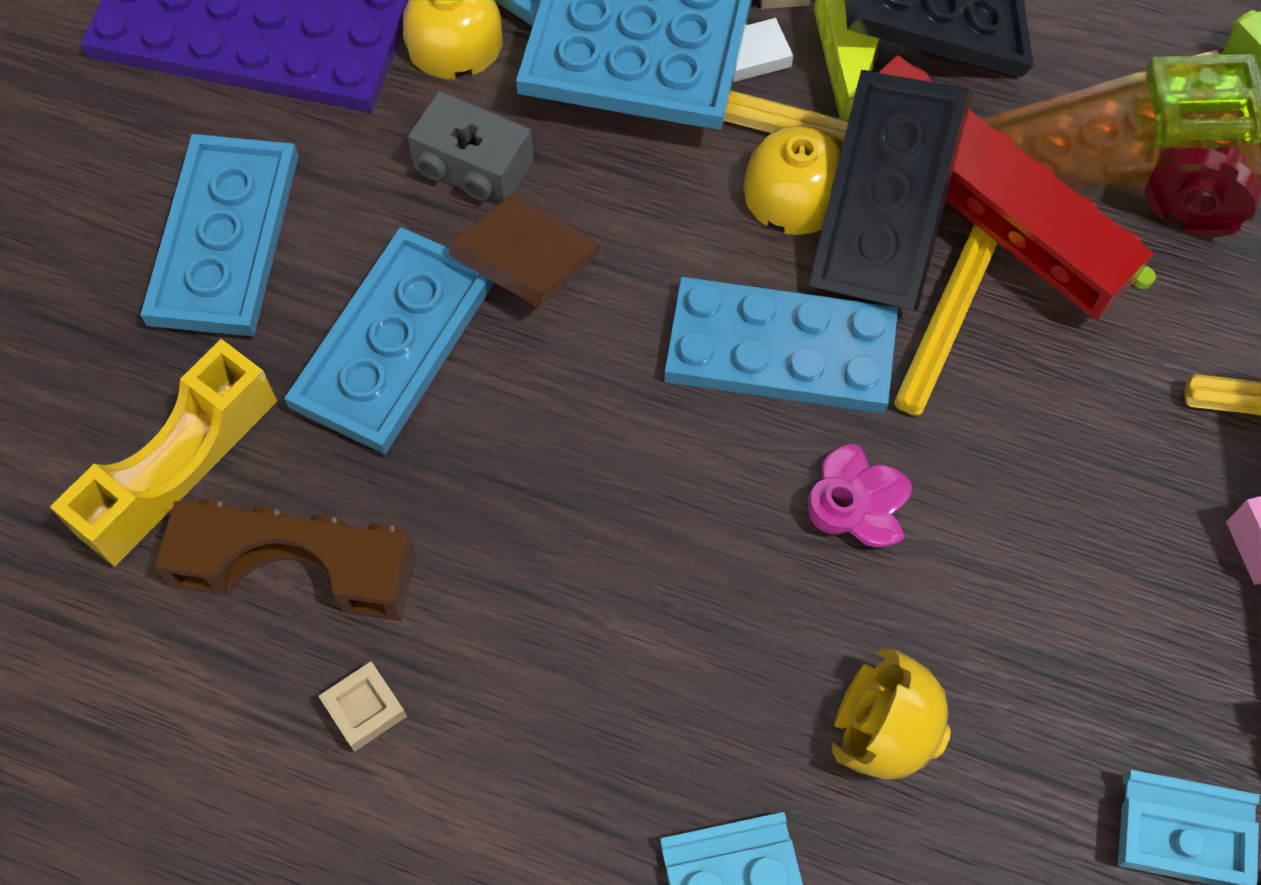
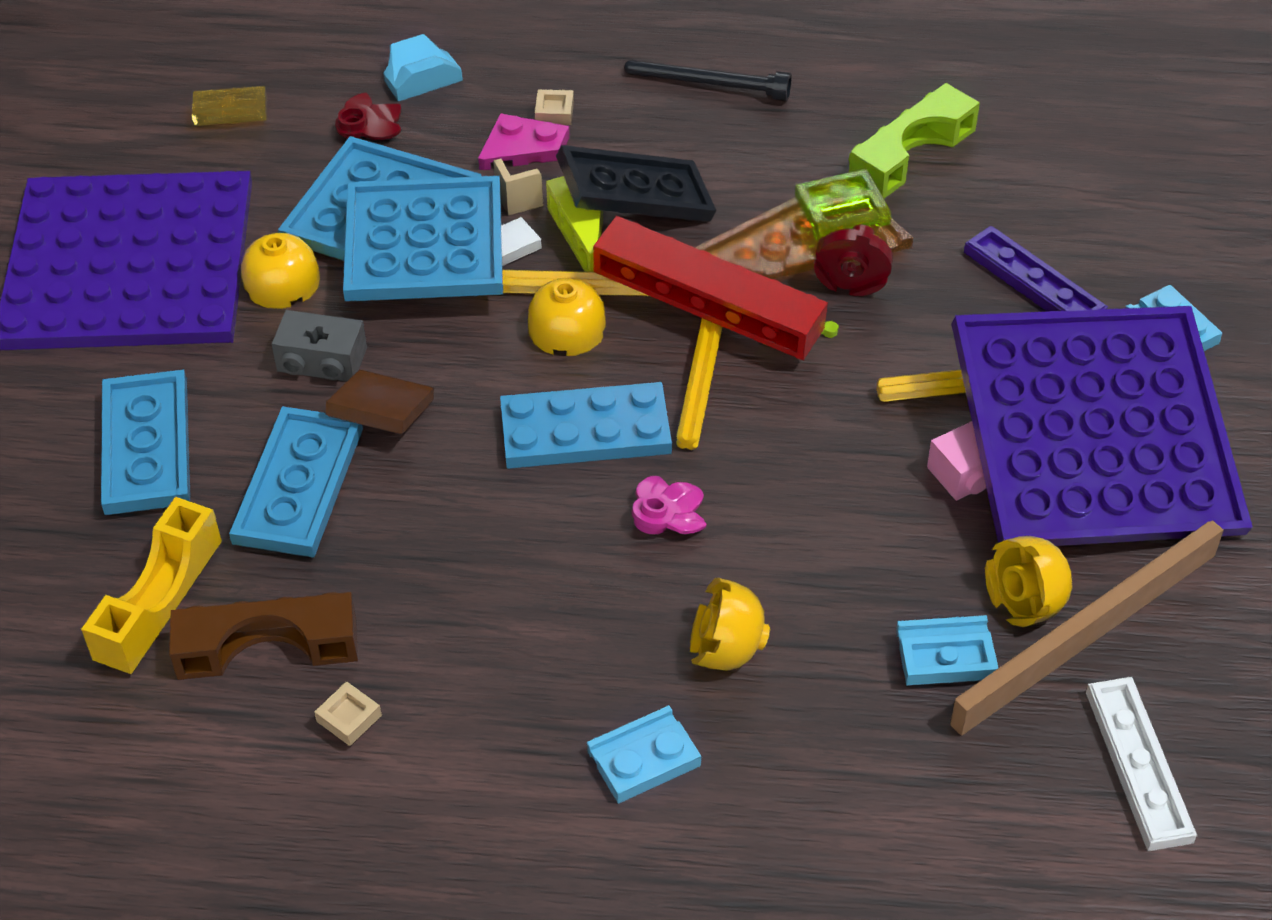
camera: 15 degrees left, 15 degrees down
(890, 188) = (634, 303): black plate -> none

